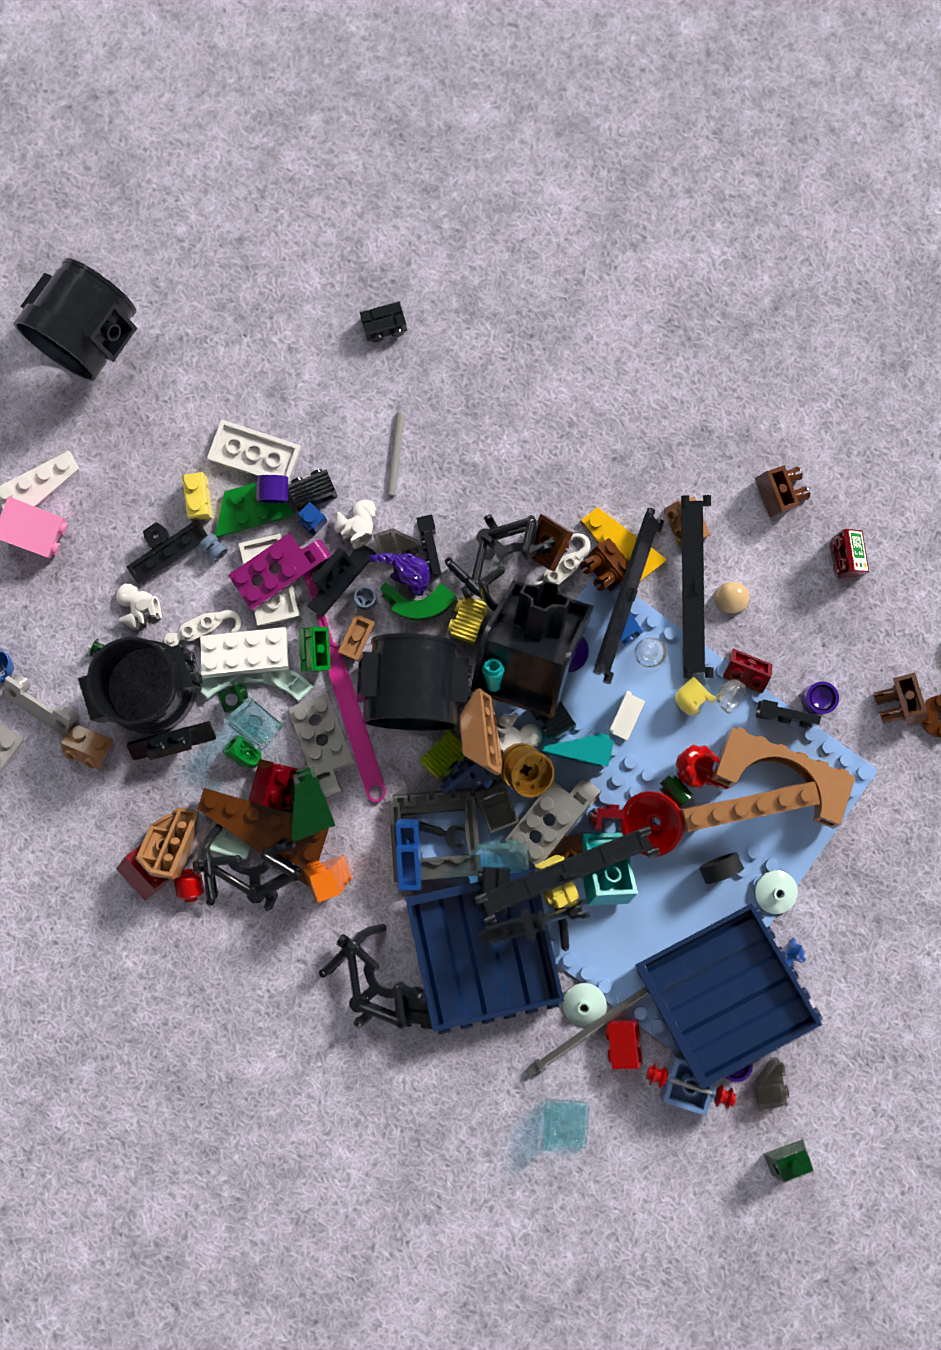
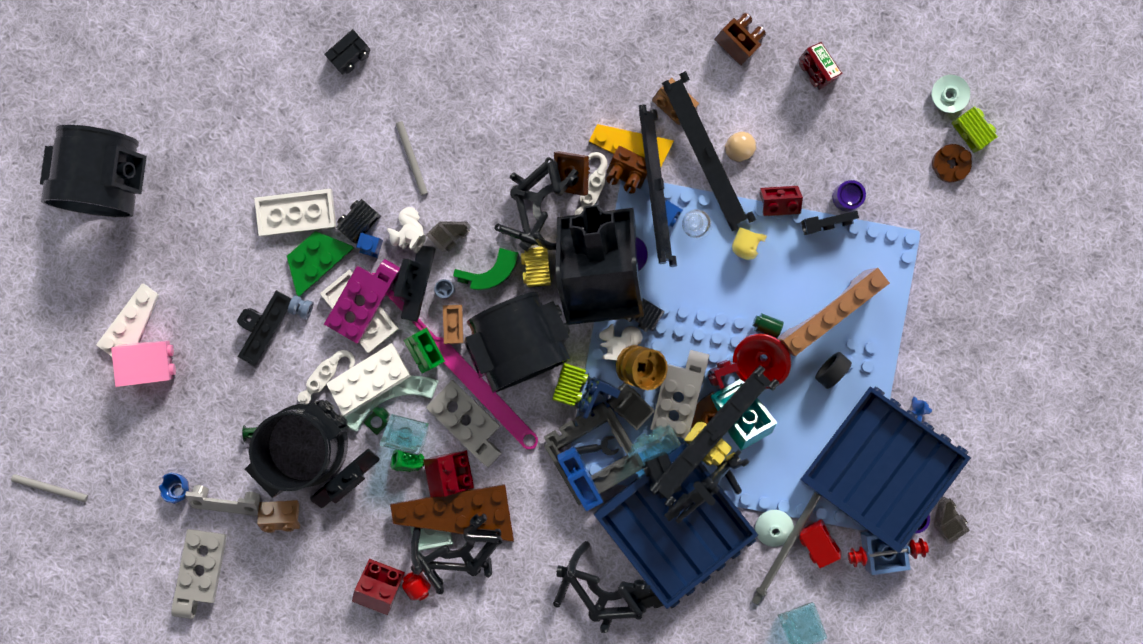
camera: 30 degrees left, 5 degrees up
(141, 605) = (265, 380): white animal -> none
(169, 843) = (384, 562): medium nougat wedge -> none
(197, 496) = (266, 271): light yellow brick -> none
(272, 488) = (324, 236): dark purple piece -> none
(308, 805) = (482, 479): dark green slope -> none
(328, 877) = (525, 528): orange wedge -> none
(407, 570) = (468, 250): dark purple hair -> none
(427, 529) = (466, 207): black plate -> none
(480, 732) = (592, 356): medium nougat wedge -> none
(493, 673) = (578, 302): teal cone -> none
(590, 750) = (682, 327): teal slope -> none
(626, 716) = (700, 284): white panel -> none
(696, 765) = (776, 300): red hair -> none
(730, 695) = (776, 227): clear hair -> none
(744, 750) = (807, 266): medium nougat arch -> none
(767, 888) = (876, 367): light aqua dish -> none
(790, 1160) = (990, 572): dark green torso -> none
(912, 705) = (925, 166): reddish brown brick -> none

